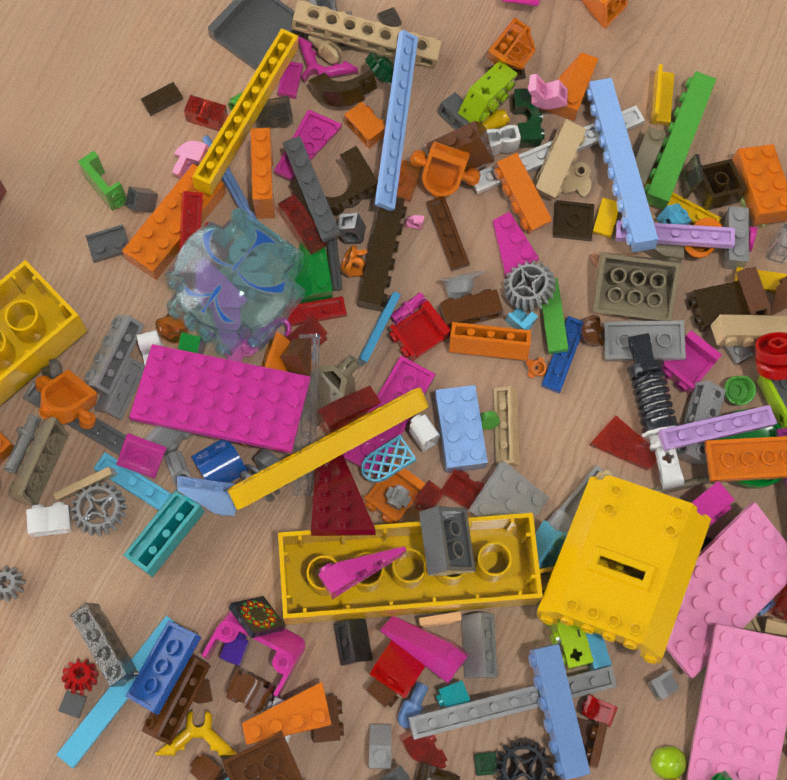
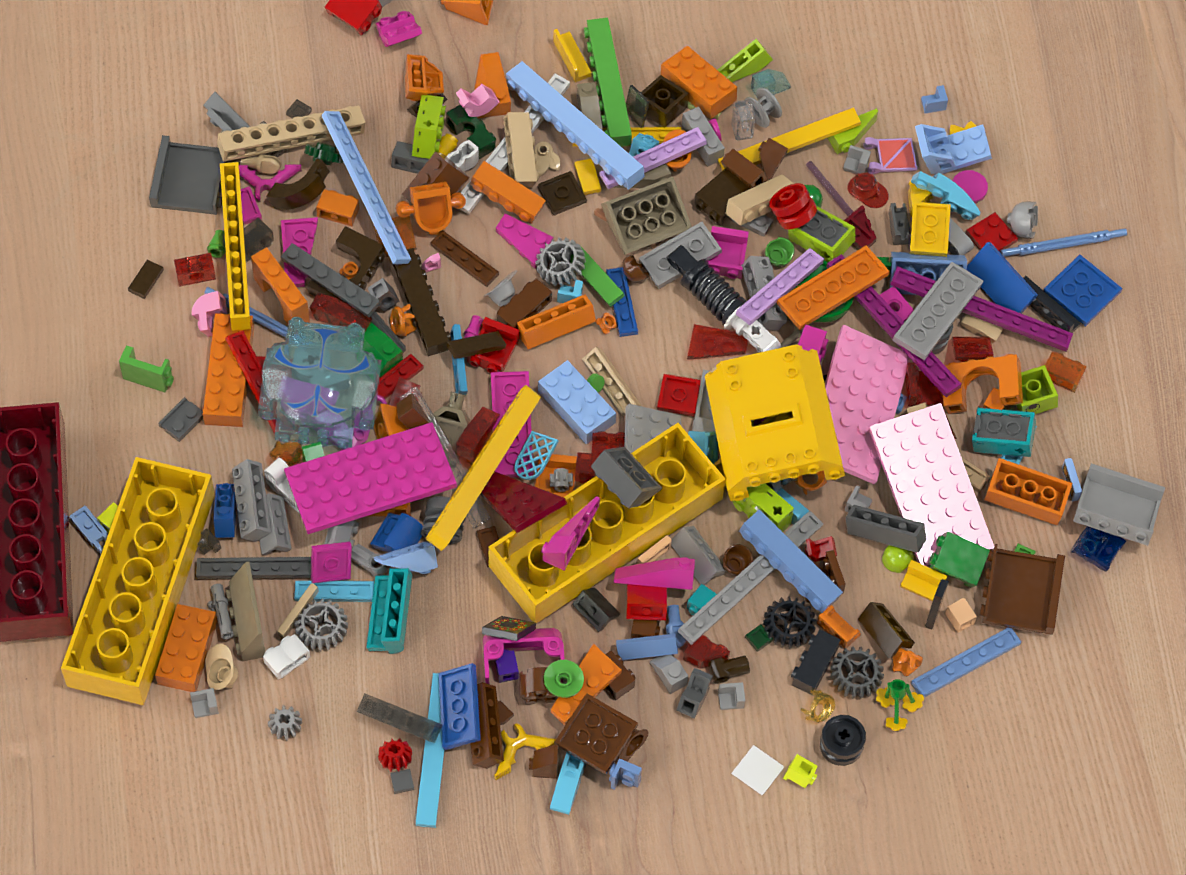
camera: 30 degrees left, 10 degrees down
(66, 399) = (236, 549): orange piece -> none
(81, 355) = (225, 511): none -> blue slope
(141, 199) = (186, 368): dark grey panel -> none
(269, 691) = (563, 670): none -> bright green dish
(298, 516) = (486, 538): none -> reddish brown tile
(339, 184) = (350, 266): none -> orange plate
(373, 711) = (647, 646): none -> medium blue tile
(402, 323) = (476, 345): none -> dark brown tile
(423, 432) = (549, 419): white brick -> none
(511, 674) = (736, 559): none -> reddish brown hair
(559, 476) = (678, 395): none -> red plate
(672, 733) = (886, 528): none -> dark grey brick

